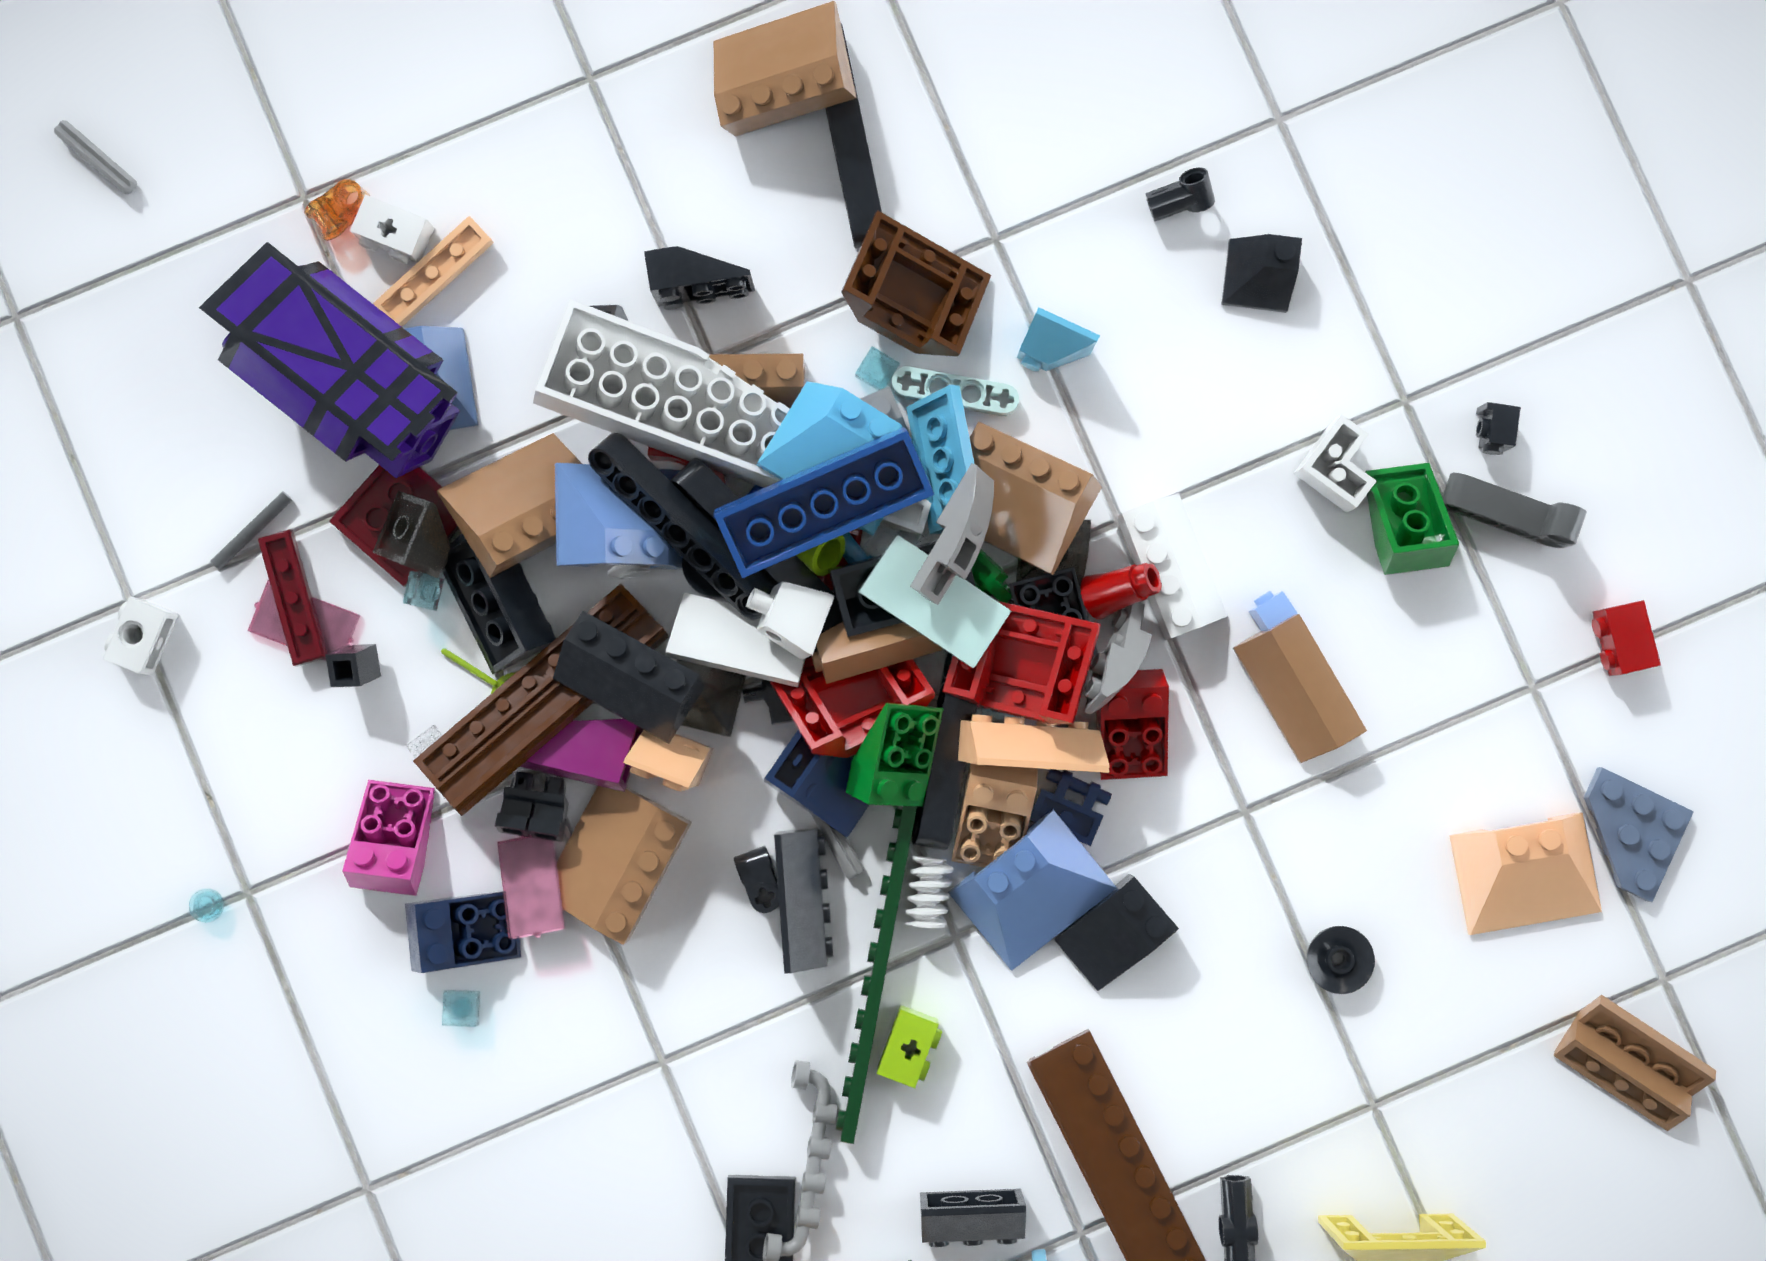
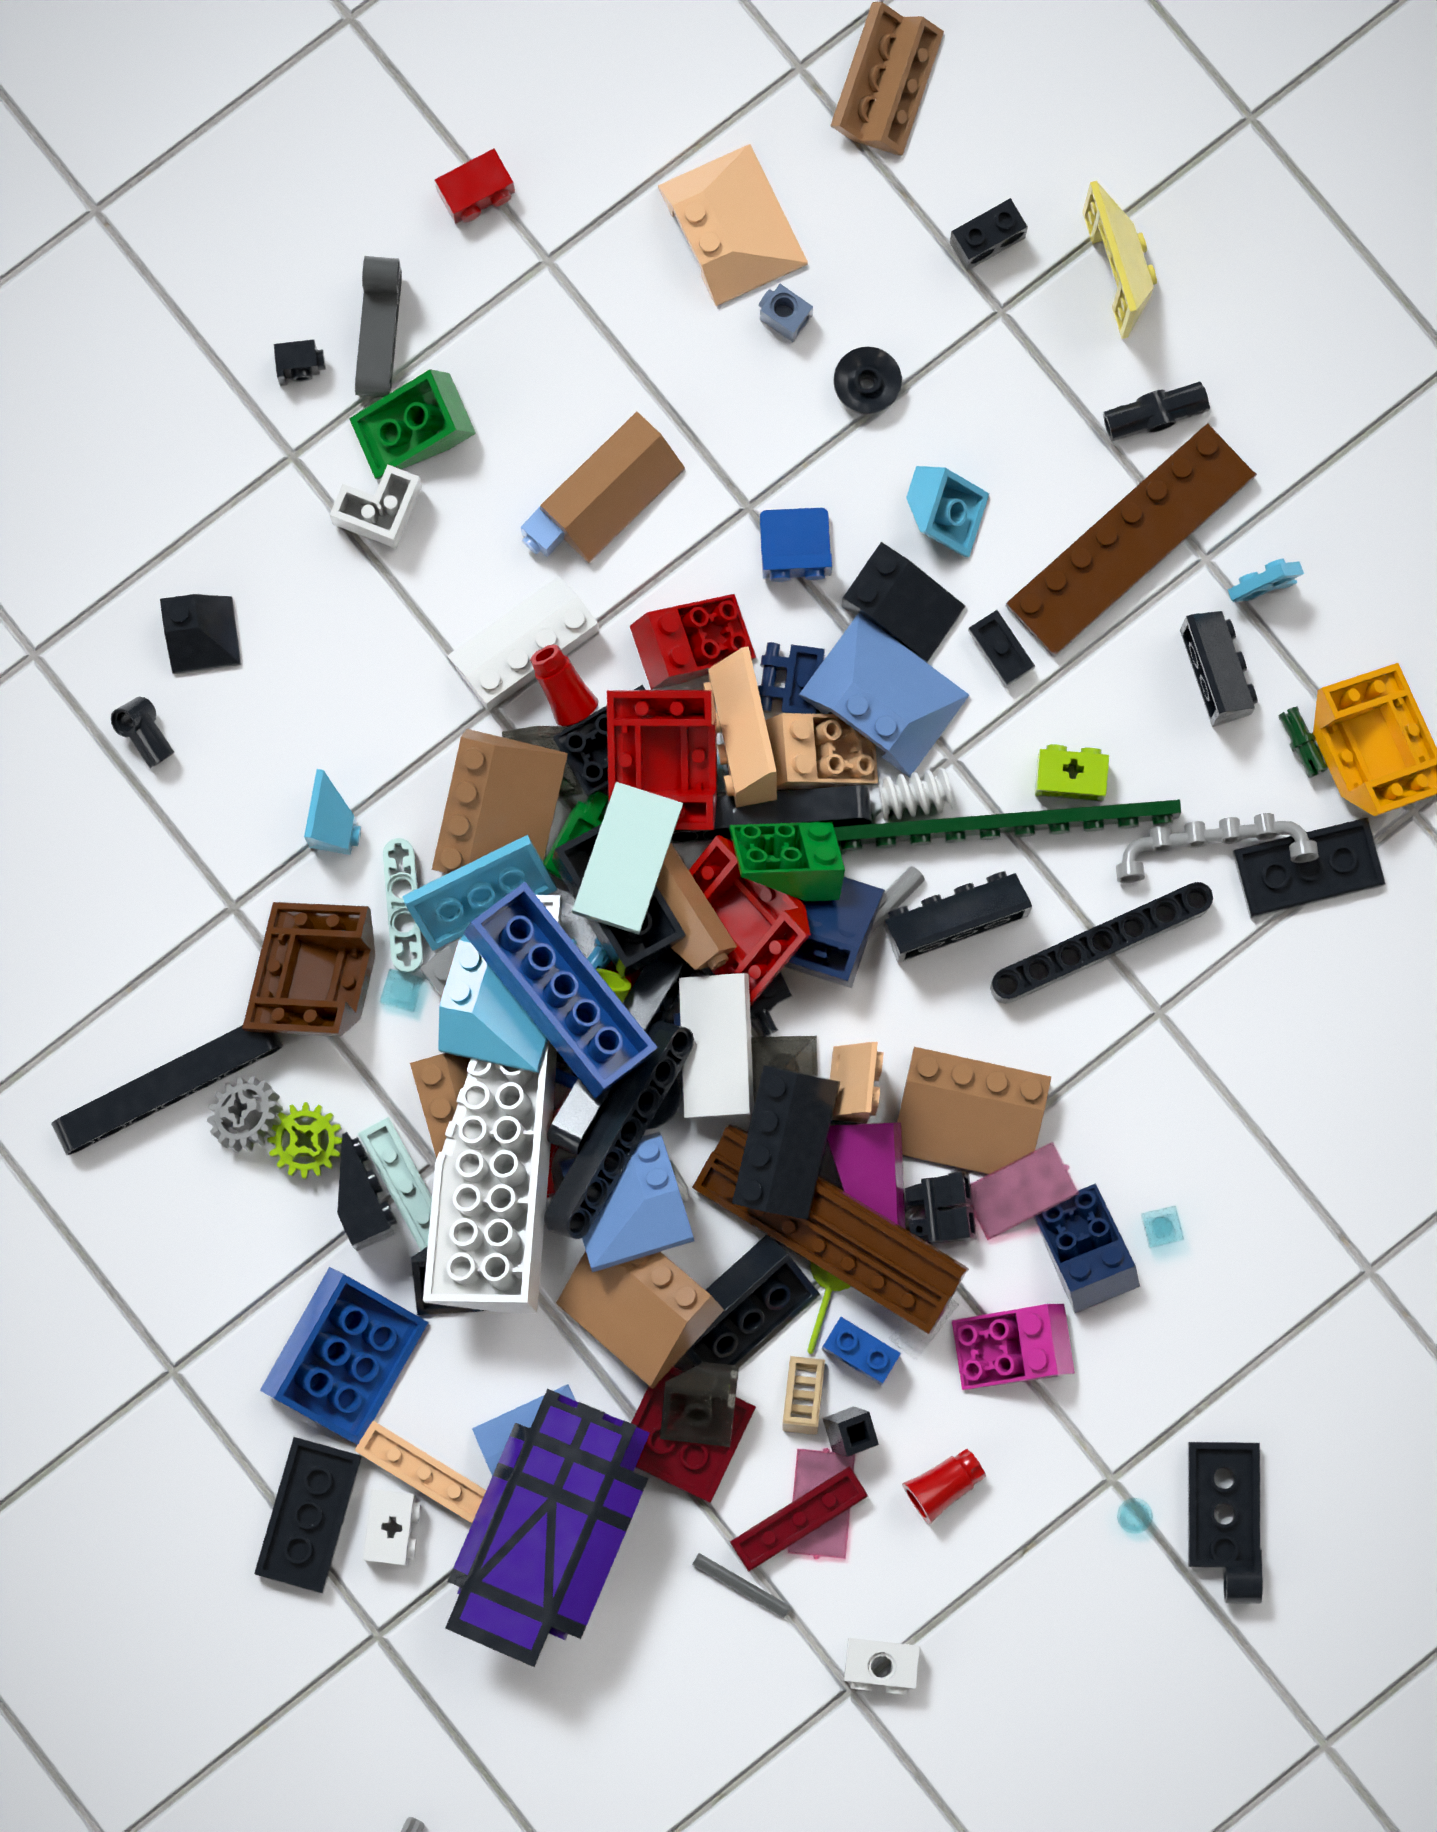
camera: 105 degrees left, 5 degrees down
(153, 992) = (1233, 1544): none -> black hinge
(282, 738) = (944, 1484): none -> red plant
(335, 208) = (384, 1592): clear orange piece -> none
(379, 621) = (796, 1424): none -> tan slope
(423, 590) = (755, 1385): clear light blue plate -> none
(425, 161) = (308, 1515): none -> black plate
(425, 696) = (861, 1350): none -> blue brick
(557, 227) = (344, 1356): none -> blue slope
(710, 322) = (400, 1177): none -> light aqua tile
(739, 1045) = (1114, 930): none -> black beam
(755, 873) = (945, 969): black piece -> none
(773, 239) = (293, 1152): none -> lime gear
(781, 70) = (117, 1169): medium nougat slope -> none
(792, 616) = (680, 994): white torso -> none
(798, 194) = (245, 1114): none -> light grey gear
(965, 527) = (546, 844): light grey slope -> none
(1047, 1013) = (1001, 648): none -> black plate
(1119, 660) = (634, 664): light grey slope -> none
(1197, 1000) = (946, 507): none -> medium azure slope
(1199, 846) = (795, 544): none -> blue bracket
(1413, 902) = (787, 326): none -> sand blue brick
(1455, 1117) = (988, 234): none -> black brick
(1635, 831) = (661, 130): sand blue plate -> none

